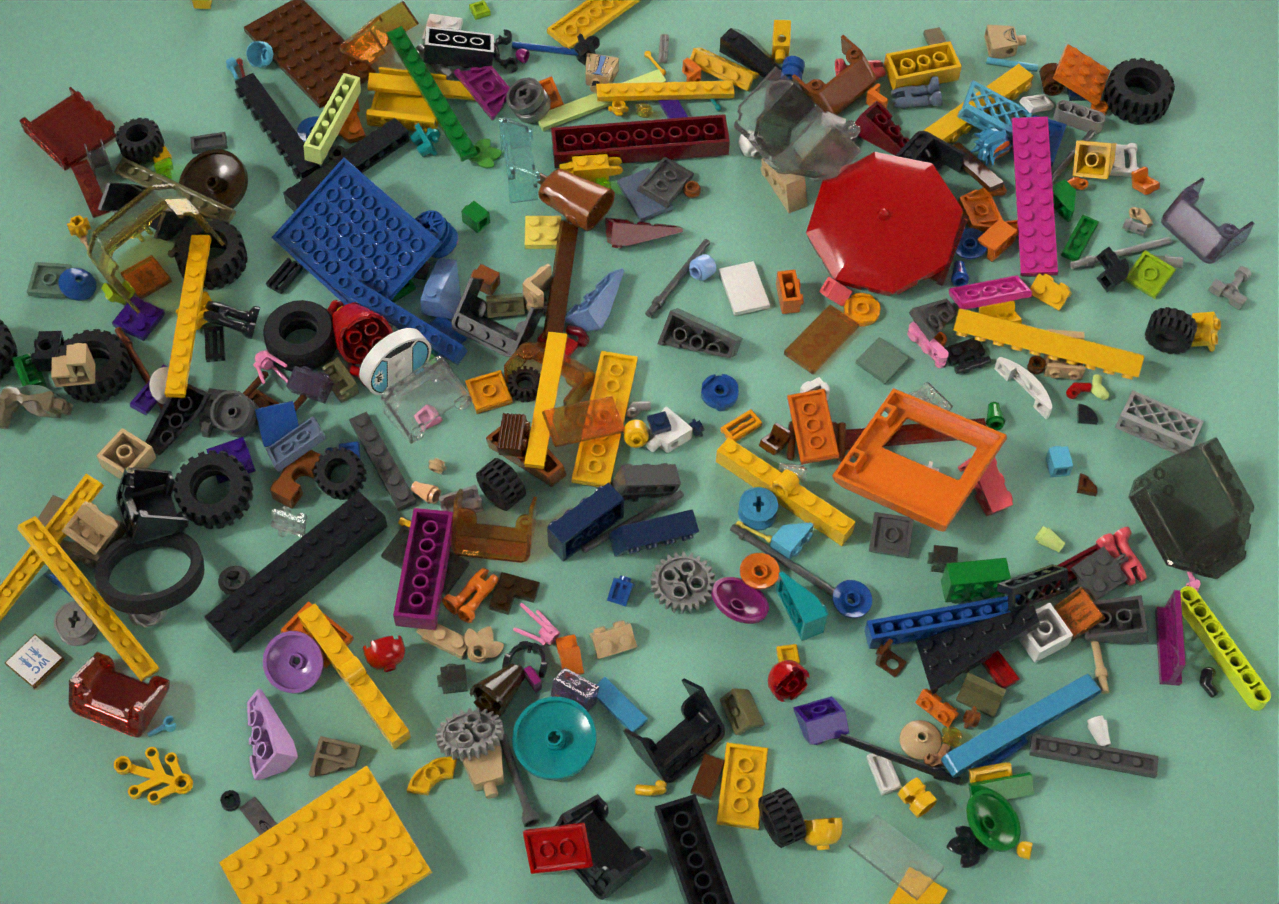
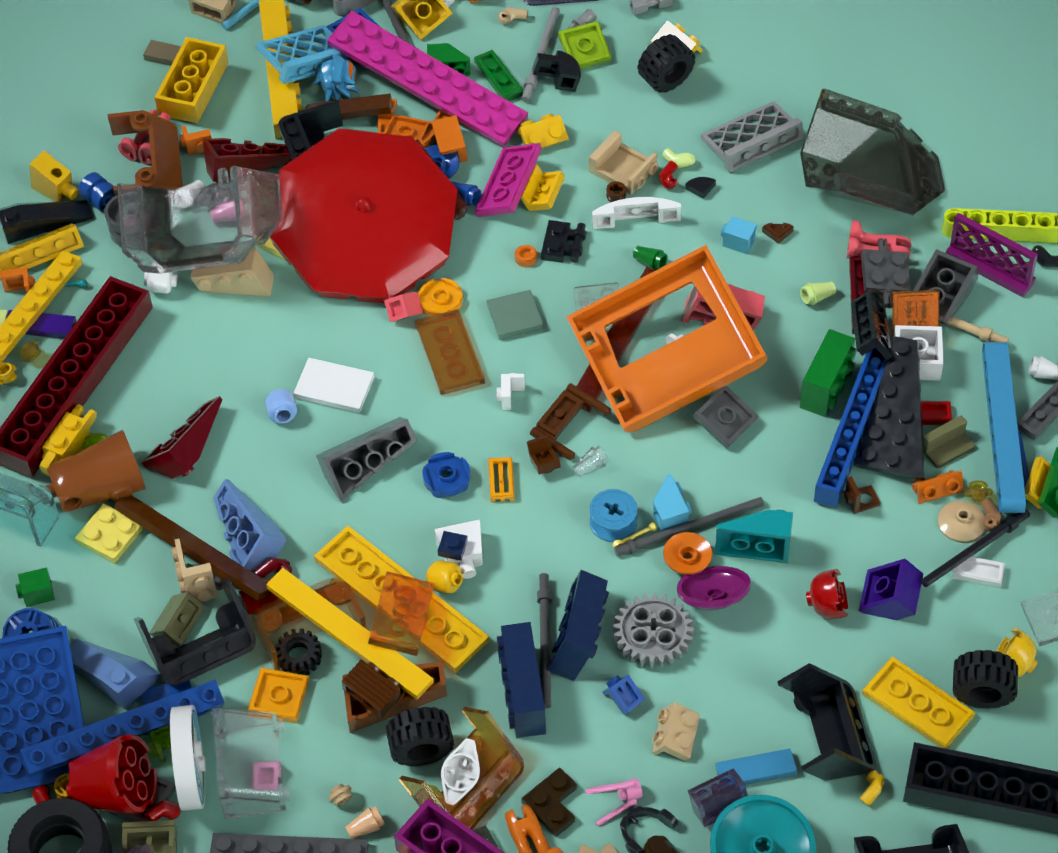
camera: 55 degrees left, 5 degrees down
(470, 500) = (402, 803): light grey hinge -> none
(489, 522) = (460, 771): none -> white hat
(490, 277) = (123, 620): dark orange brick -> none
(533, 679) = (675, 832): magenta tile -> none
(569, 654) = (667, 785): orange slope -> none
(636, 407) = (407, 560): light grey arm -> none
(642, 205) = (140, 411): sand blue tile -> none
(646, 480) = (509, 597): dark grey wedge -> none
(659, 300) = (289, 470): dark grey bar -> none
(665, 182) = (142, 381): dark grey tile -> none
(692, 189) = (170, 363): dark orange plate -> none
(697, 427) = (476, 514): dark blue plate -> none
(707, 776) = (889, 729): reddish brown tile -> none
(741, 710) = (837, 657): olive panel -> none
(787, 491) = (625, 474): yellow hinge -> none
(788, 652) = (797, 583): yellow tile -> none
(789, 291) = (375, 345): orange brick -> none
(813, 426) = (554, 412): orange tile -> none
(855, 591) = (778, 483): blue dish -> none
(906, 98) = (224, 85): sand blue piece -> none
(919, 799) = (1027, 554): yellow wheel -> none
(932, 348) = (528, 264): bright pink plate -> none
(933, 317) = (504, 240): dark grey wing -> none
(941, 556) = (782, 388): clear smoke brick -> none
(971, 718) = (968, 463): dark orange plate -> none
(1037, 103) = (315, 15): white tile -> none
(1049, 343) = (604, 165): yellow brick -> none
(1078, 183) = (434, 38): orange arm -> none
(1133, 226) = (516, 28): light grey pin -> none
(1195, 583) = (940, 209): bright pink hand -> none

